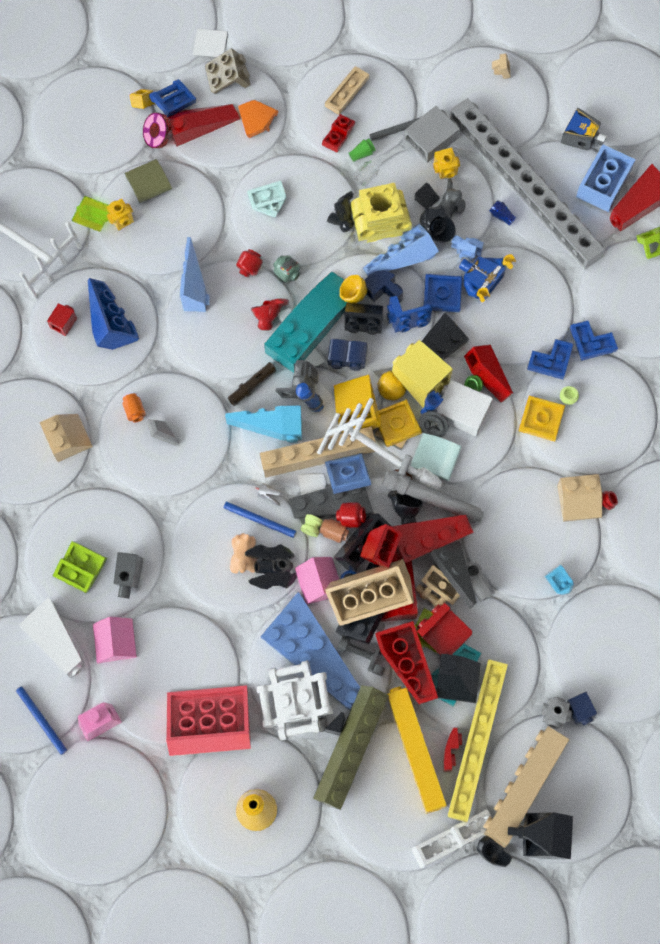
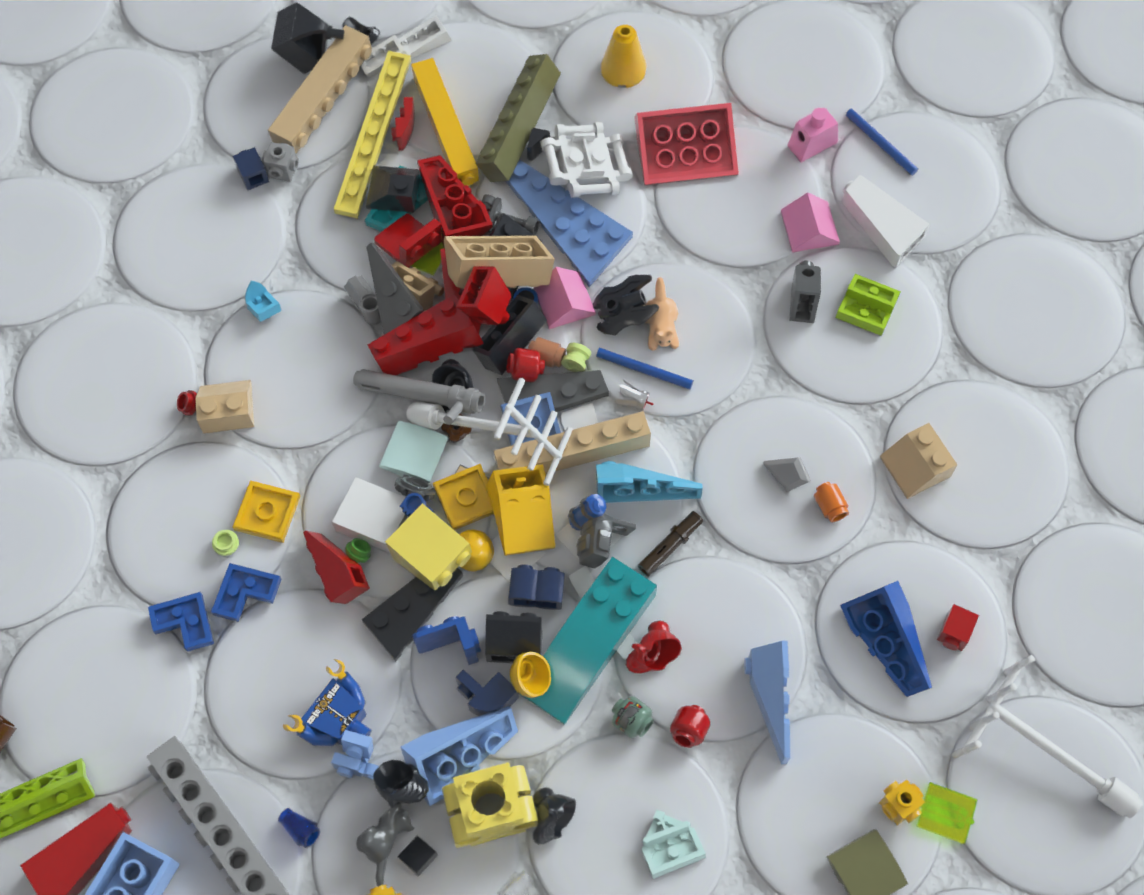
camera: 175 degrees right, 5 degrees down
(443, 292) = (397, 689): blue plate -> none

